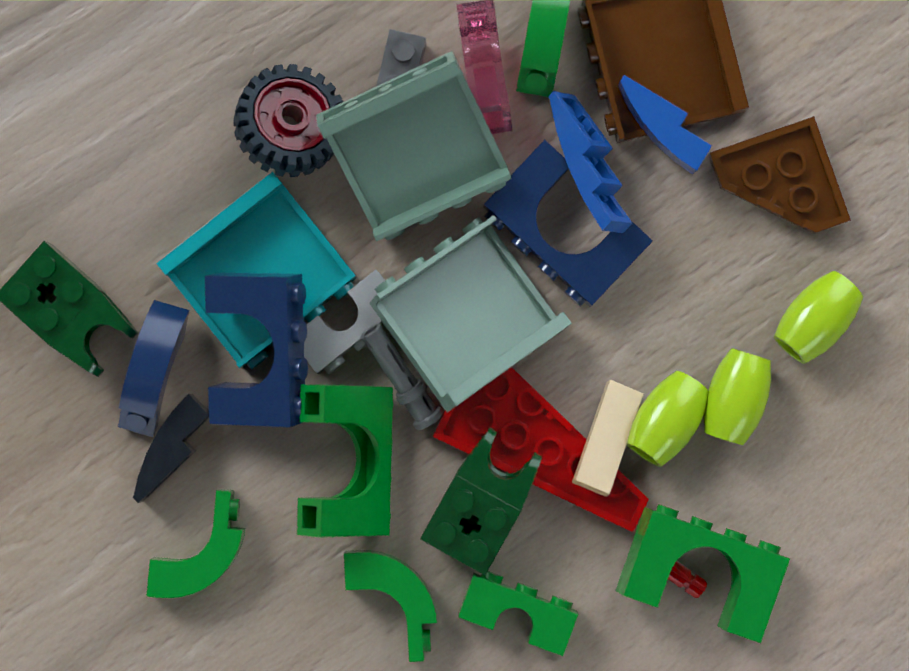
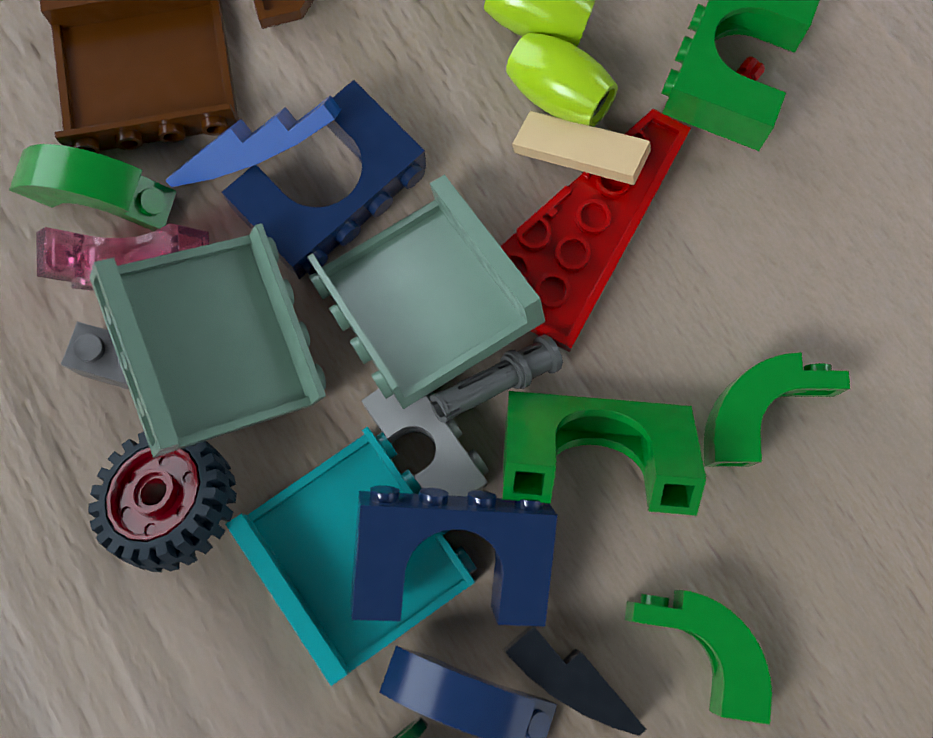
camera: 90 degrees left, 10 degrees down
(481, 492) = (648, 286): dark green brick -> none
(551, 619) = (769, 295): green arch -> none
(663, 125) = (219, 61): blue slope -> none

